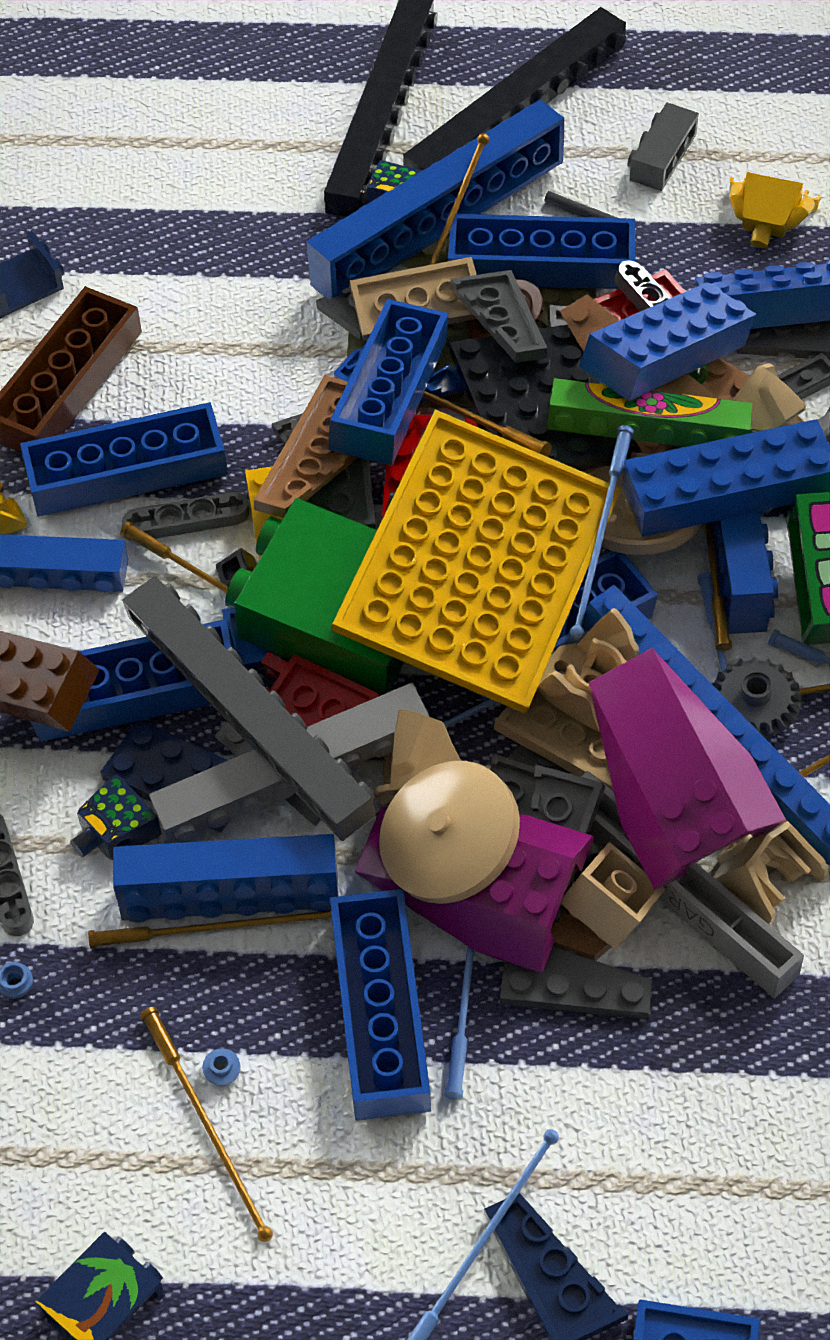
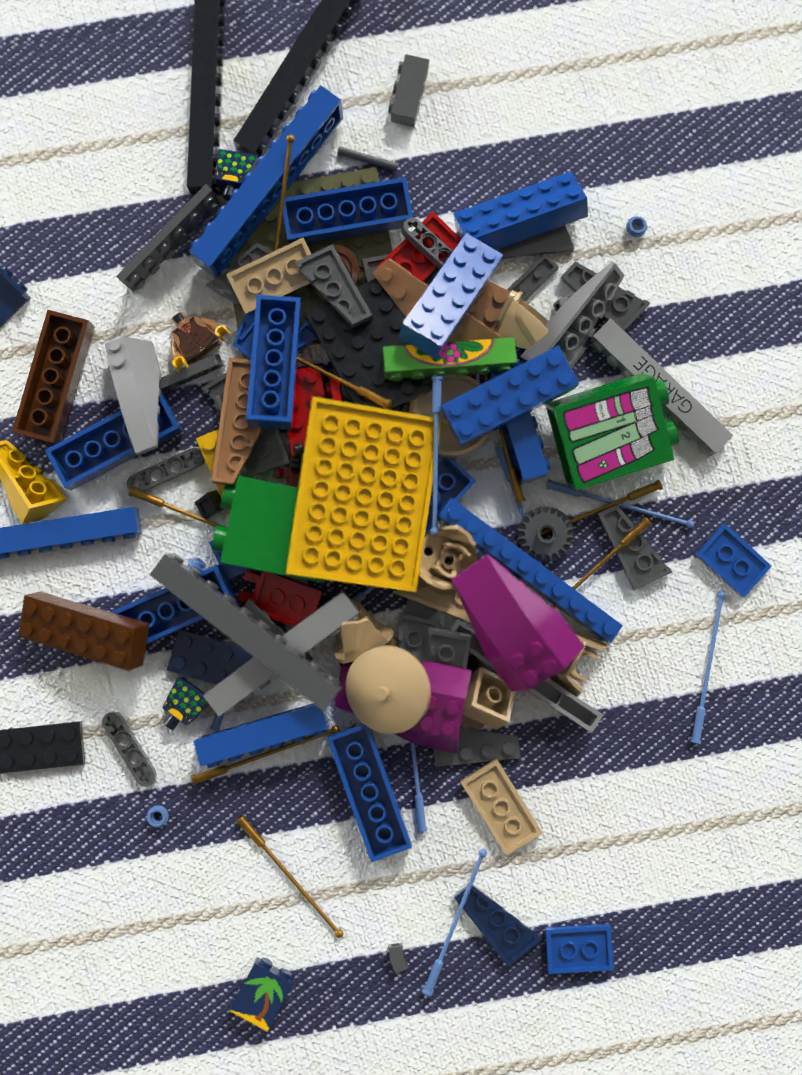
camera: 20 degrees left, 30 degrees up
(180, 389) = (136, 383): none -> light grey wedge
(225, 1076) = (292, 837): medium blue plate -> none
(273, 241) = (172, 235): none -> dark grey plate
(282, 364) = (194, 339): none -> torso
(295, 397) = (191, 373): none -> dark grey beam
(358, 1294) = (397, 957): none -> dark grey piece
(600, 1081) = (501, 807): none -> tan plate
(769, 206) = (490, 134): yellow torso -> none

